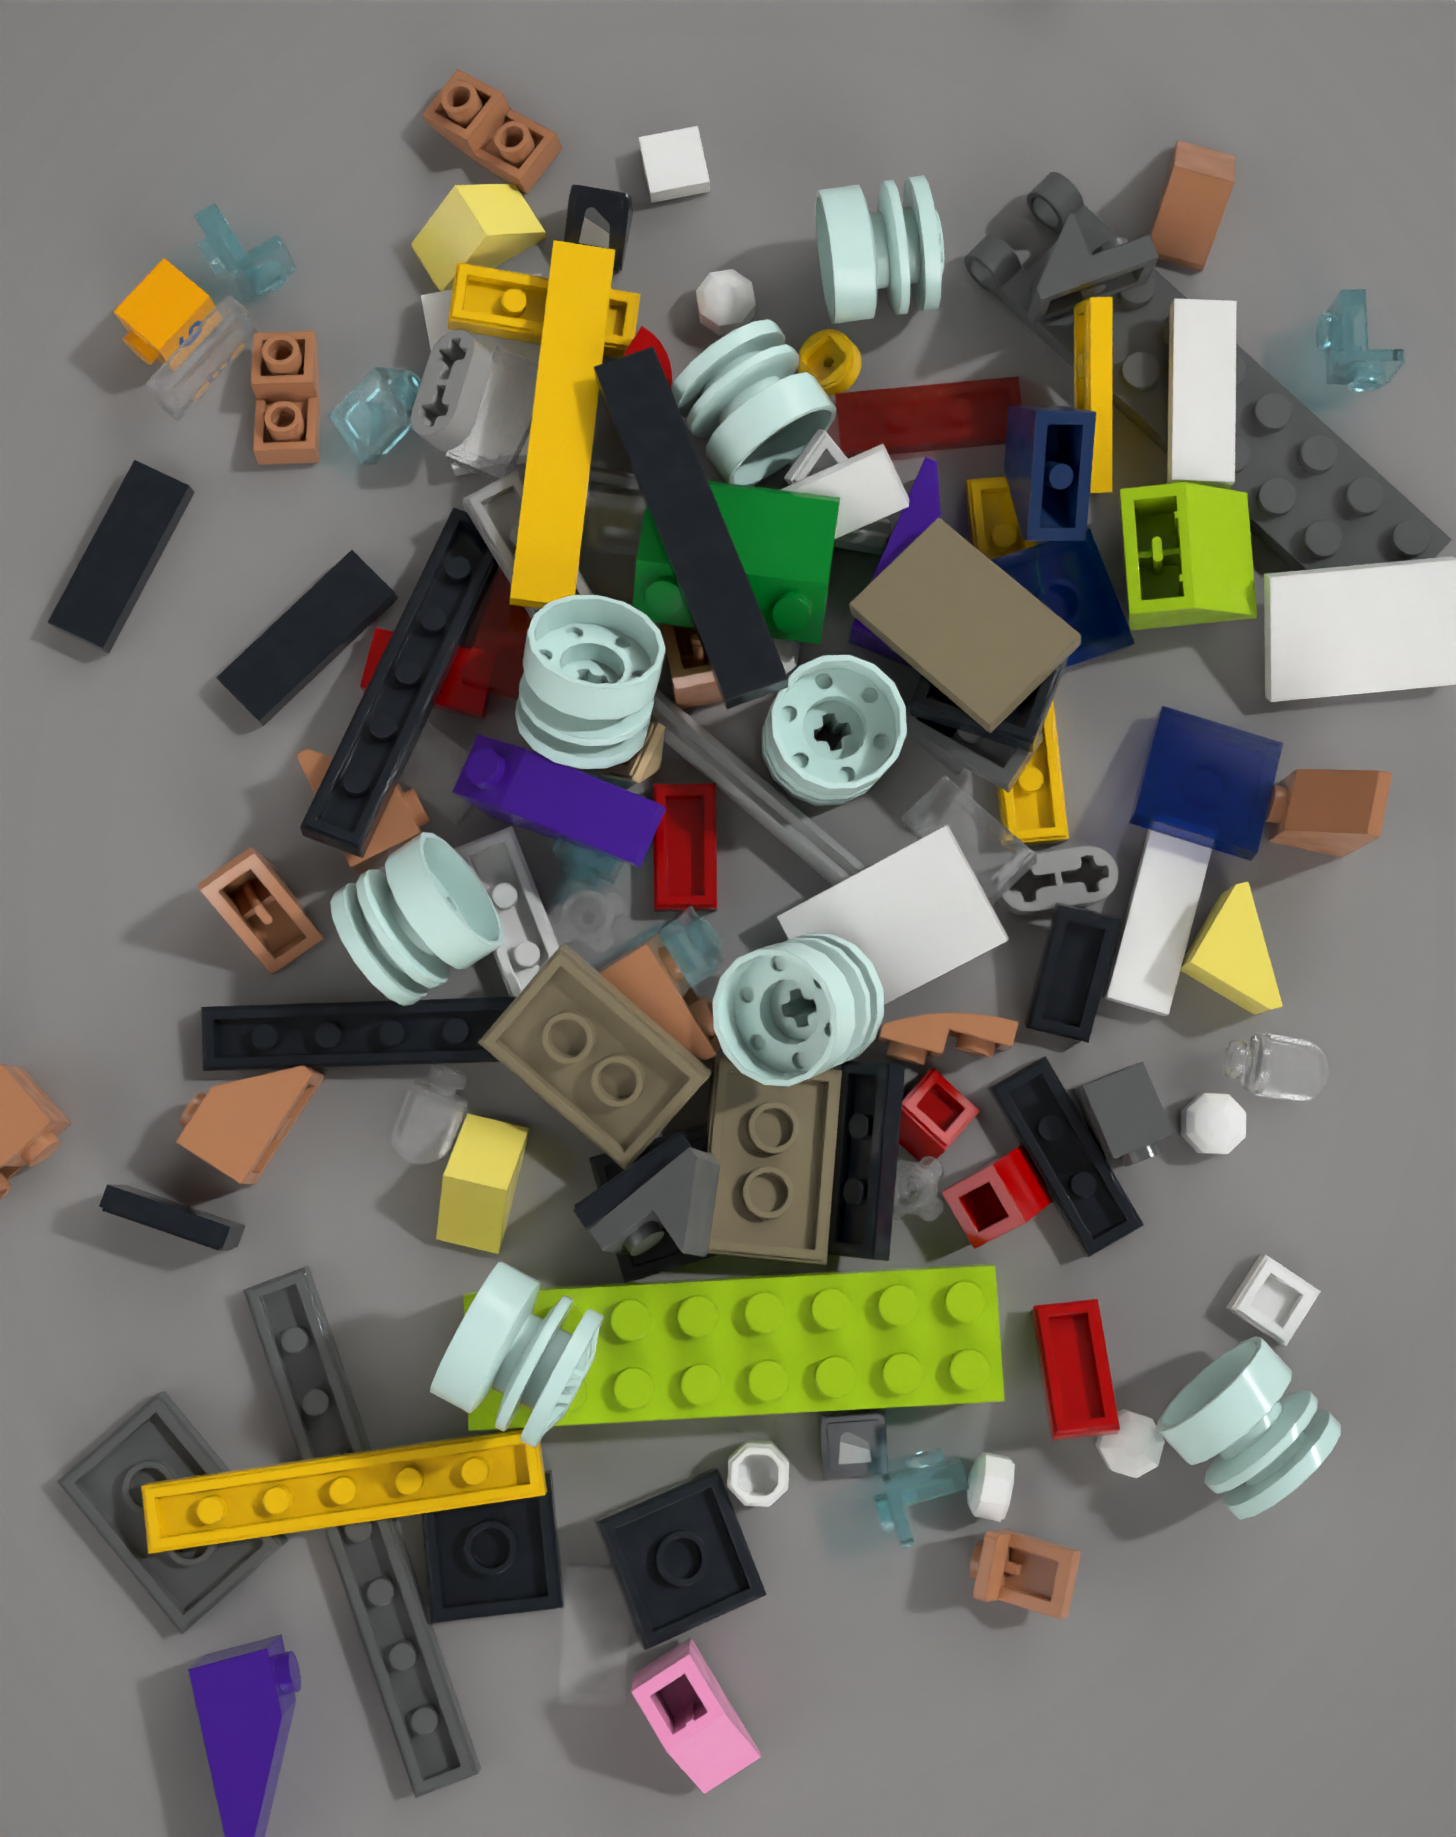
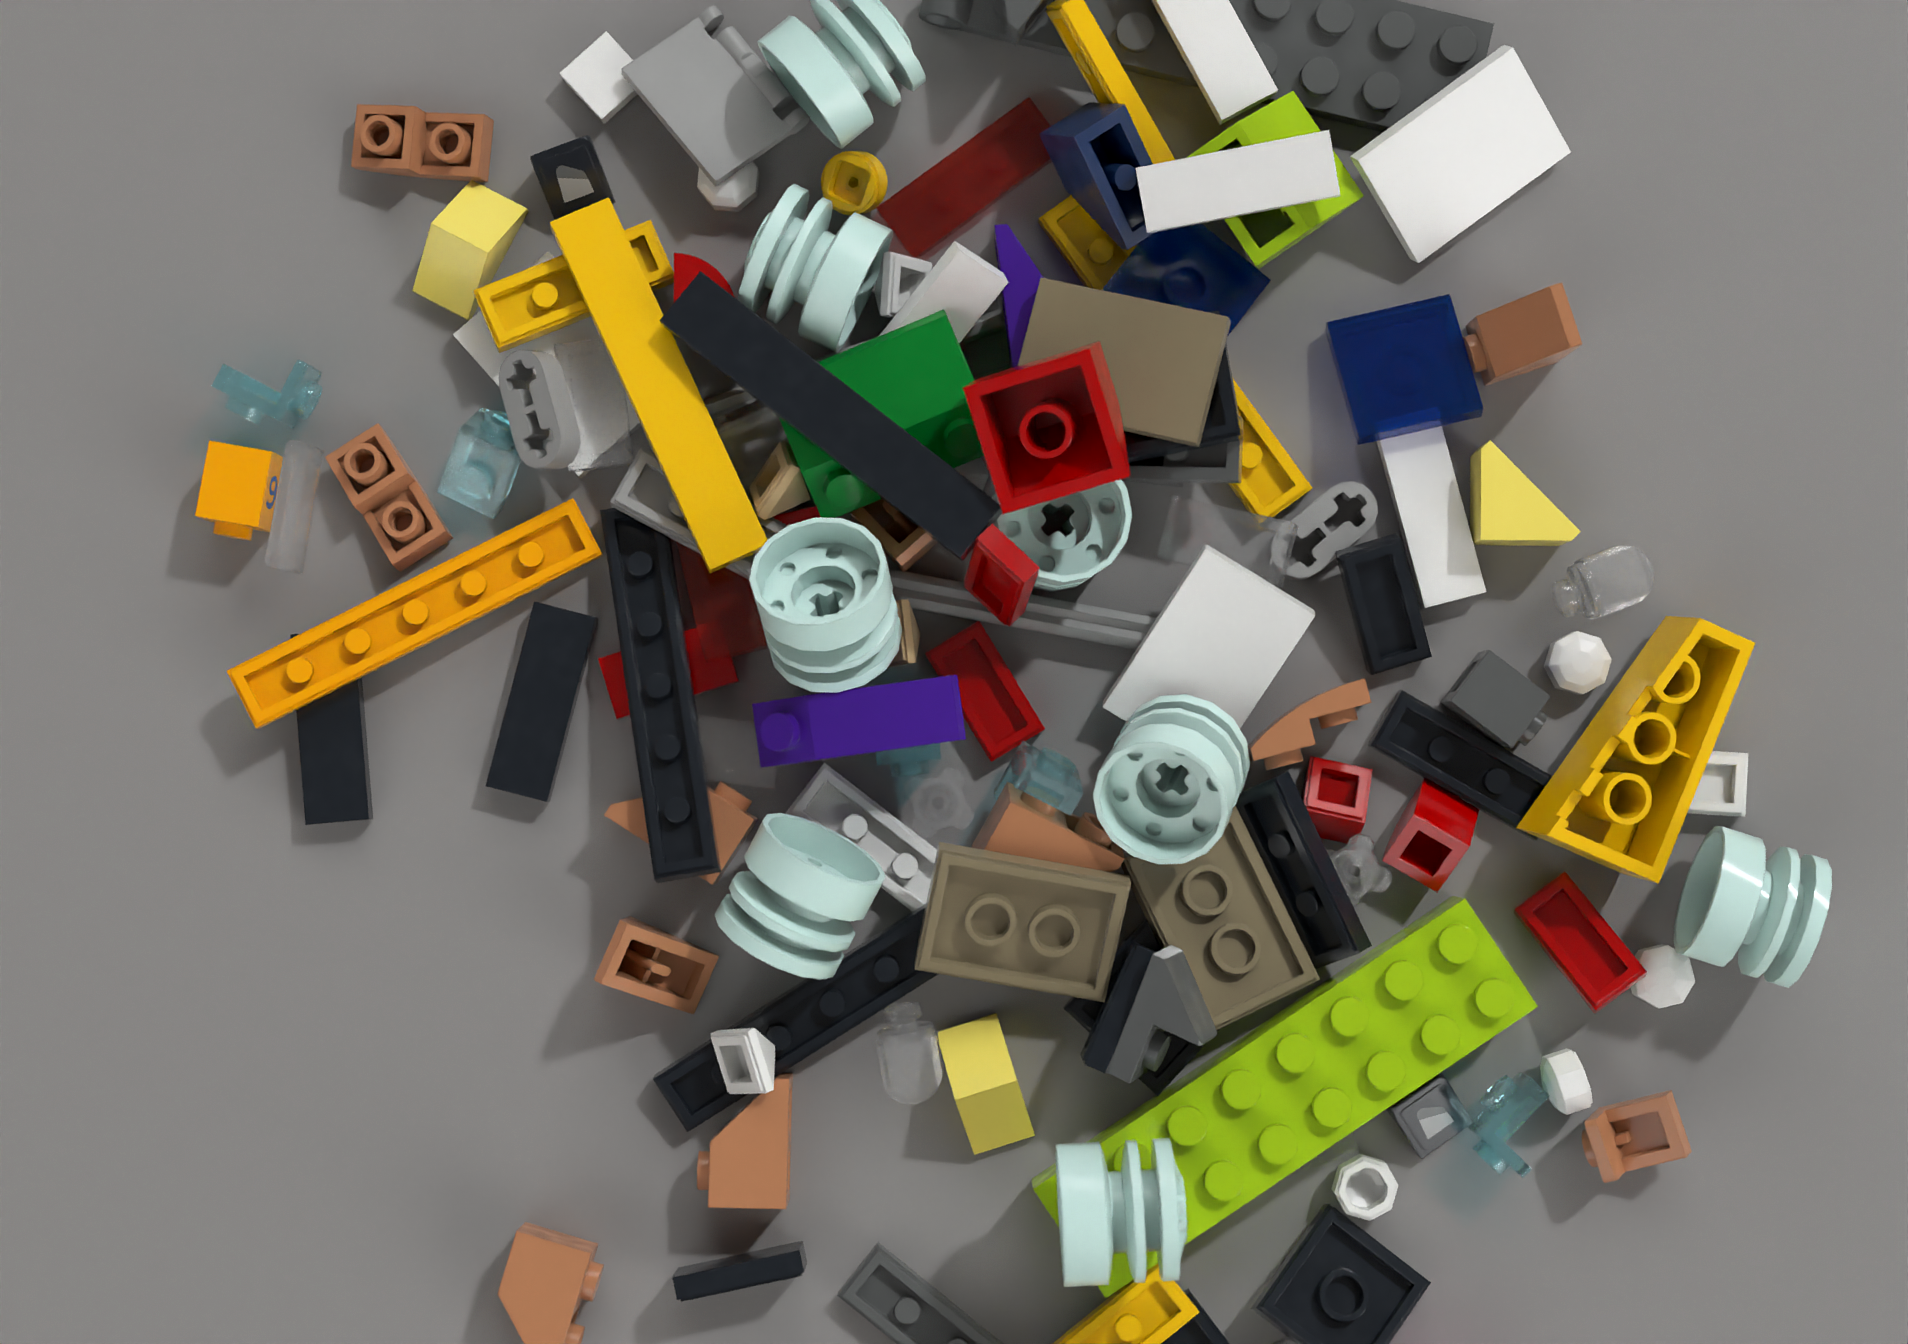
camera: 30 degrees left, 5 degrees up
(245, 501) = (414, 613): none -> light orange tile
(287, 1034) = (745, 1060): none -> white slope
(613, 569) = (778, 483): none -> tan slope
(754, 744) = (1000, 575): none -> red tile
(755, 226) = (714, 96): none -> light grey piece
(870, 632) = (1049, 427): none -> red slope
(1156, 530) = (1238, 181): none -> white tile
(1229, 1234) = (1644, 751): none -> yellow wedge

